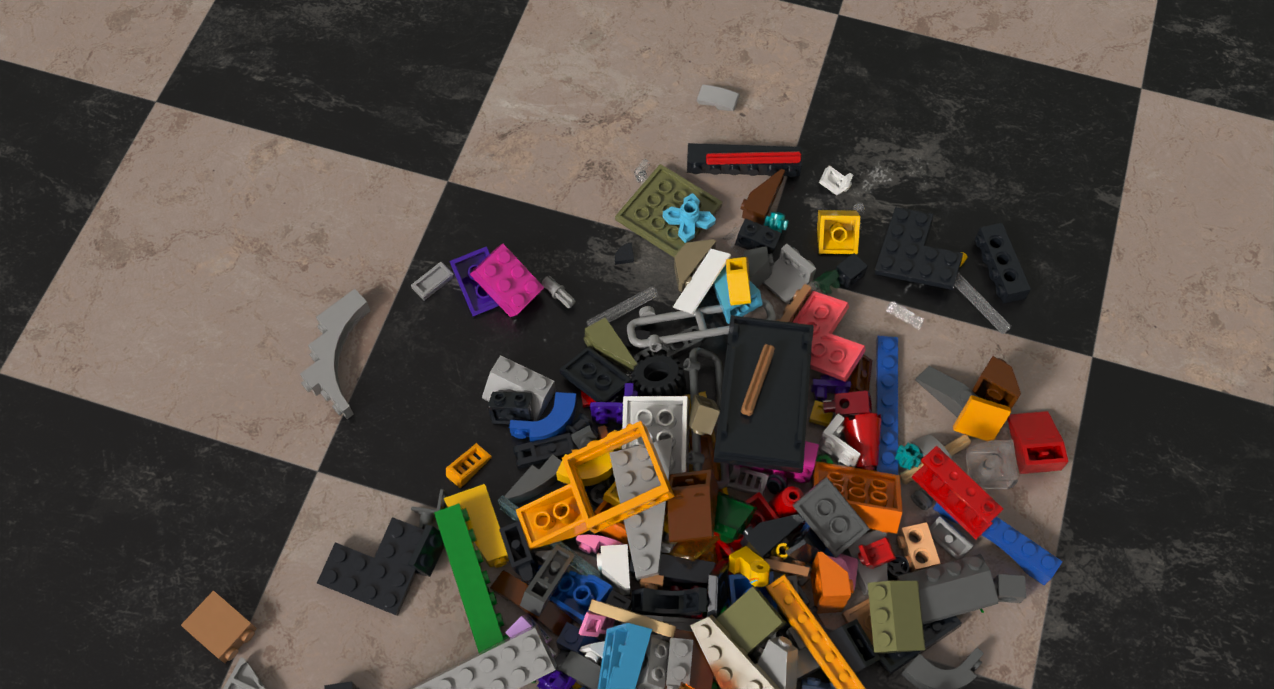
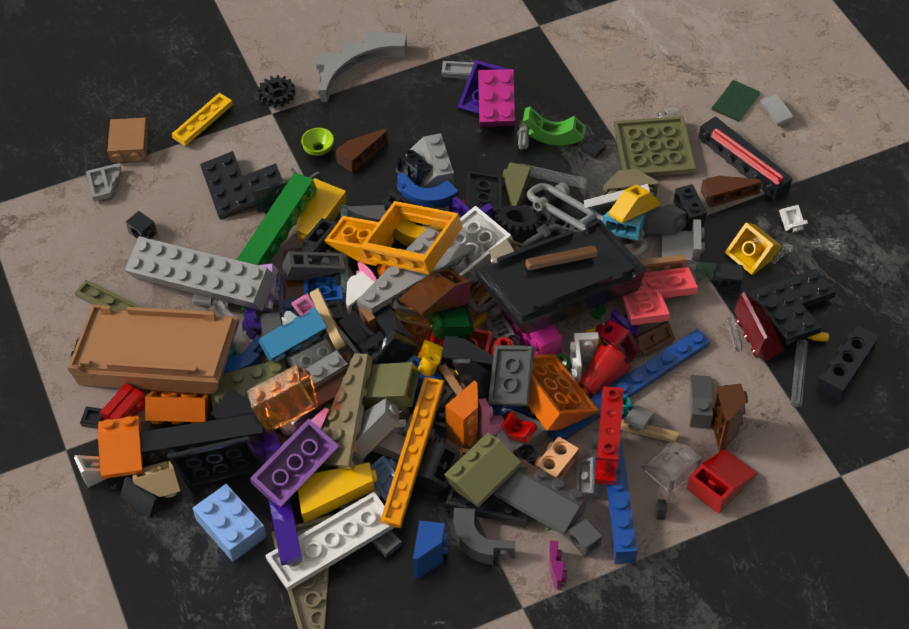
camera: 50 degrees right, 10 degrees down
(263, 539) = (202, 119): none -> yellow plate
(310, 448) = (278, 91): none -> black gear
(395, 452) = (316, 137): none -> lime piece
(442, 436) = (360, 149): none -> reddish brown slope
(458, 474) = (343, 180): light orange slope -> none
(581, 267) = (551, 132): none -> bright green arch
(676, 115) = (735, 100): none -> clear green piece
(689, 217) = (658, 154): medium azure plant -> none
(776, 221) = (716, 208): teal gear -> none
(922, 296) = (757, 328): none -> dark red slope
(981, 418) = (697, 426): light orange tile -> none
(1024, 508) = (661, 509): none -> black tile
(1026, 637) = (556, 566): none -> magenta slope

